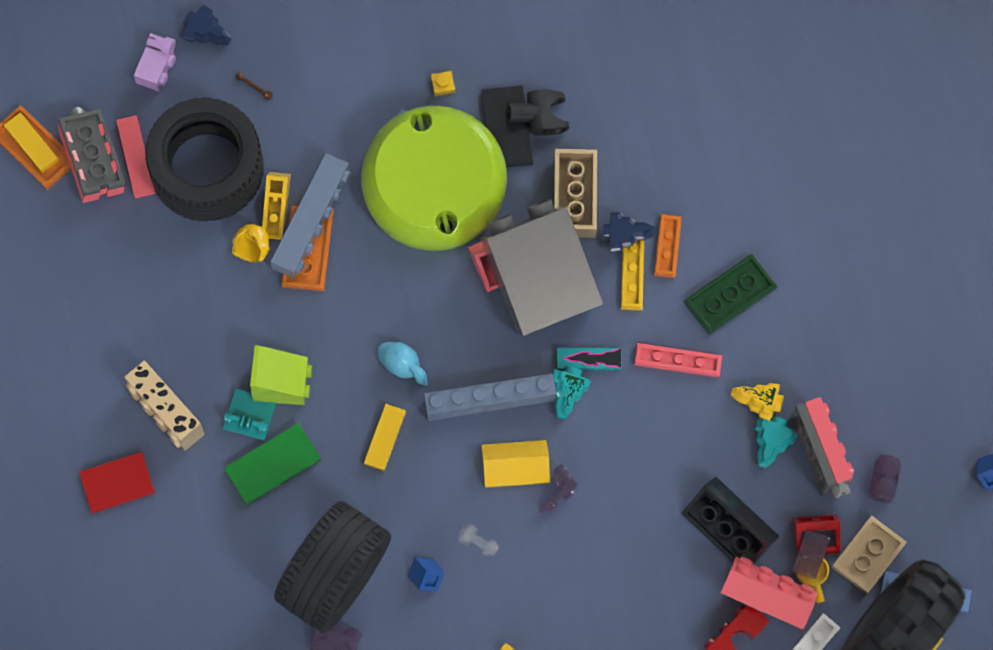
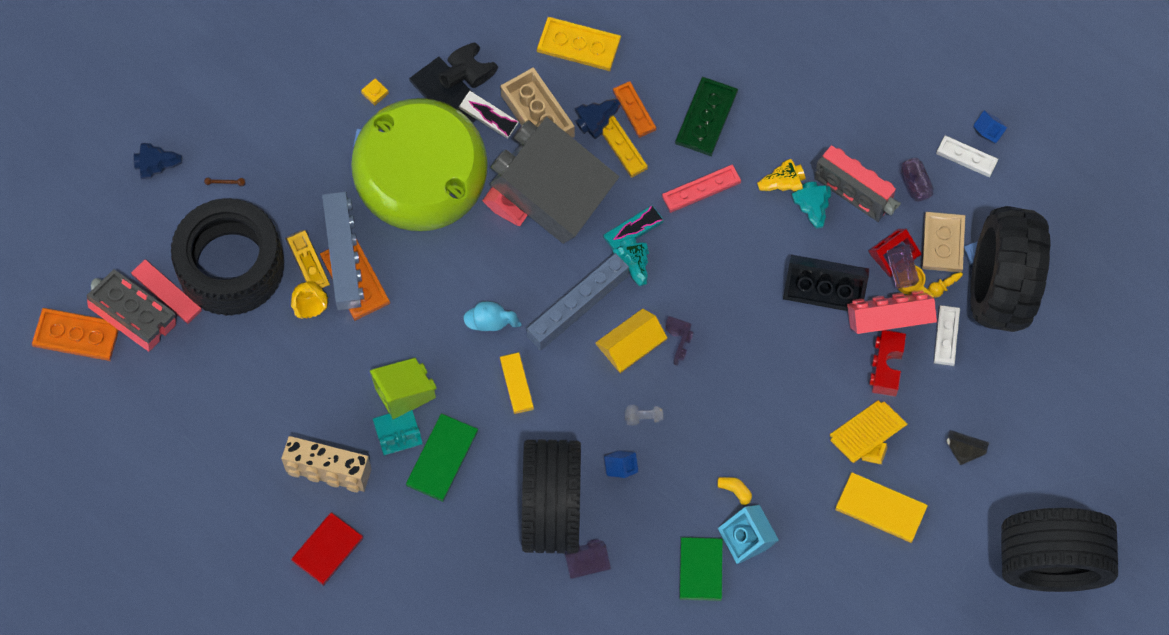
camera: 30 degrees left, 5 degrees down
(31, 142) = (73, 330): yellow tile -> none
(155, 62) = (132, 209): lavender hinge -> none
(529, 169) = (488, 114): none -> tile
(659, 151) = (579, 43): none -> yellow tile
(833, 595) = (938, 288): none -> yellow bar
(950, 485) = (967, 156): none -> white tile

